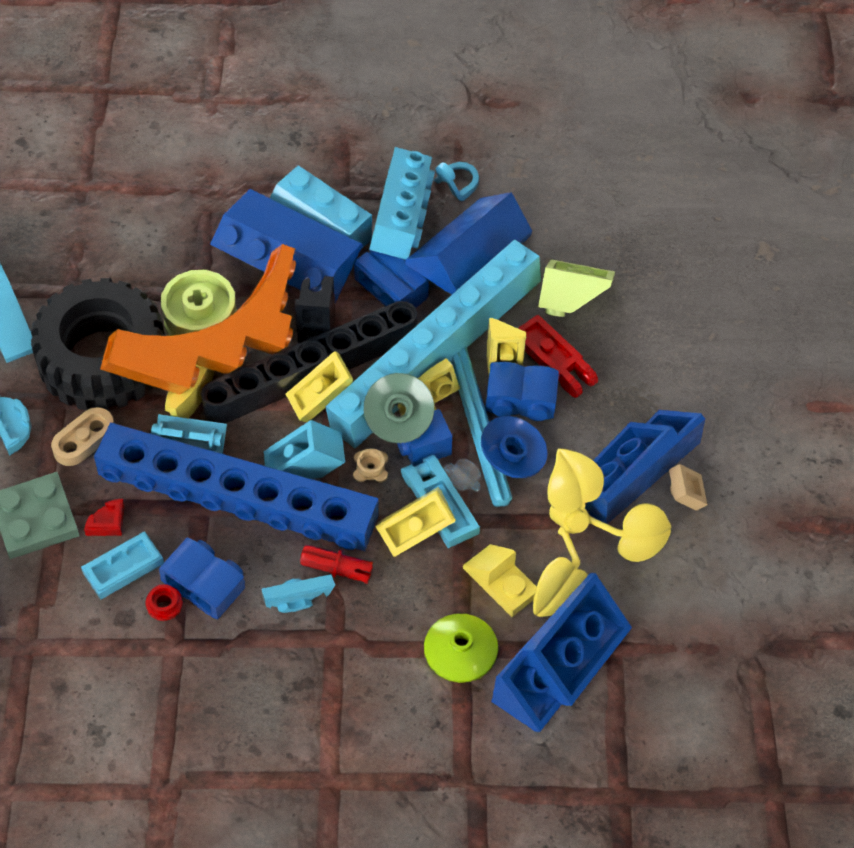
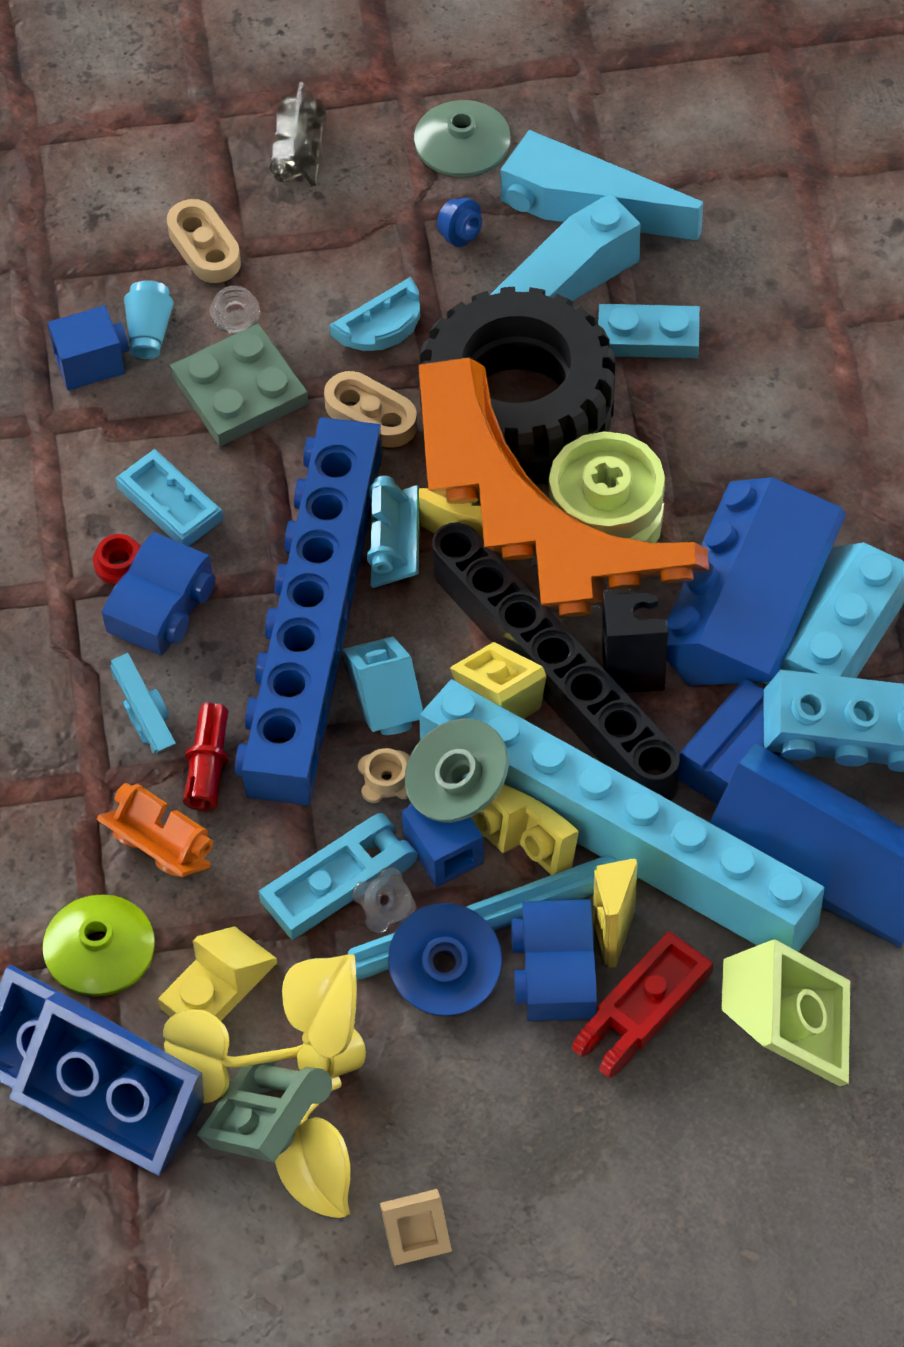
camera: 85 degrees right, 0 degrees up
(66, 268) = (651, 330): none -> medium azure plate
(106, 520) = (246, 470): red tile -> none
(381, 606) = (175, 846): none -> orange hinge
(415, 521) = (288, 842): light yellow slope -> none
(621, 552) = (259, 1123): none -> sand green plate
(642, 457) = (452, 1144): blue slope -> none

